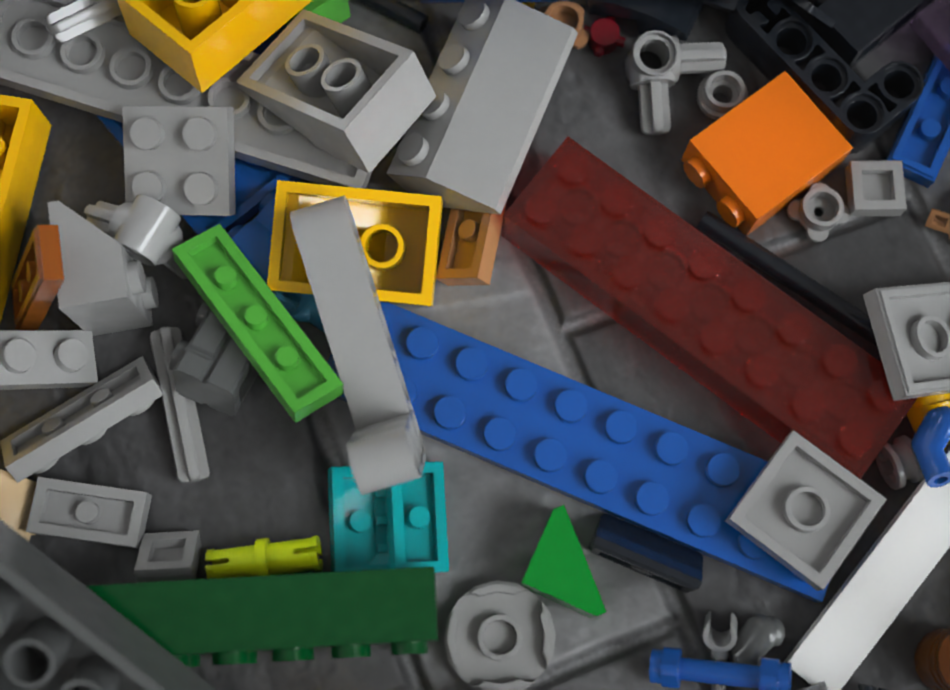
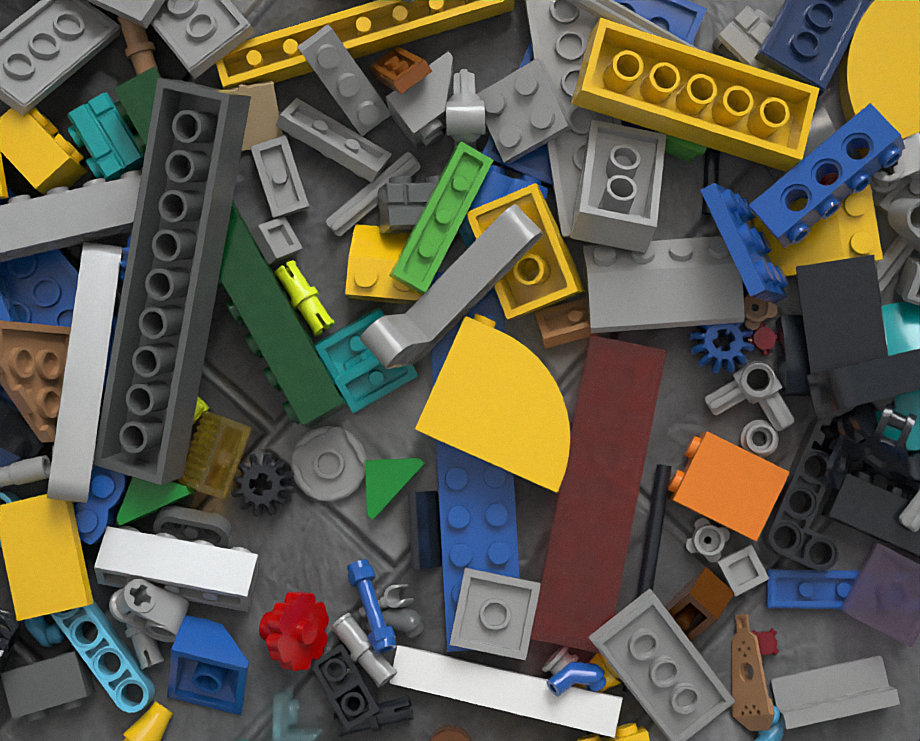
camera: 70 degrees right, 10 degrees up
(273, 447) = (369, 266): none -> yellow slope
(537, 370) = (499, 405): none -> yellow brick
(604, 84) = (732, 350): none -> blue gear
(898, 250) = (699, 603): none -> reddish brown slope

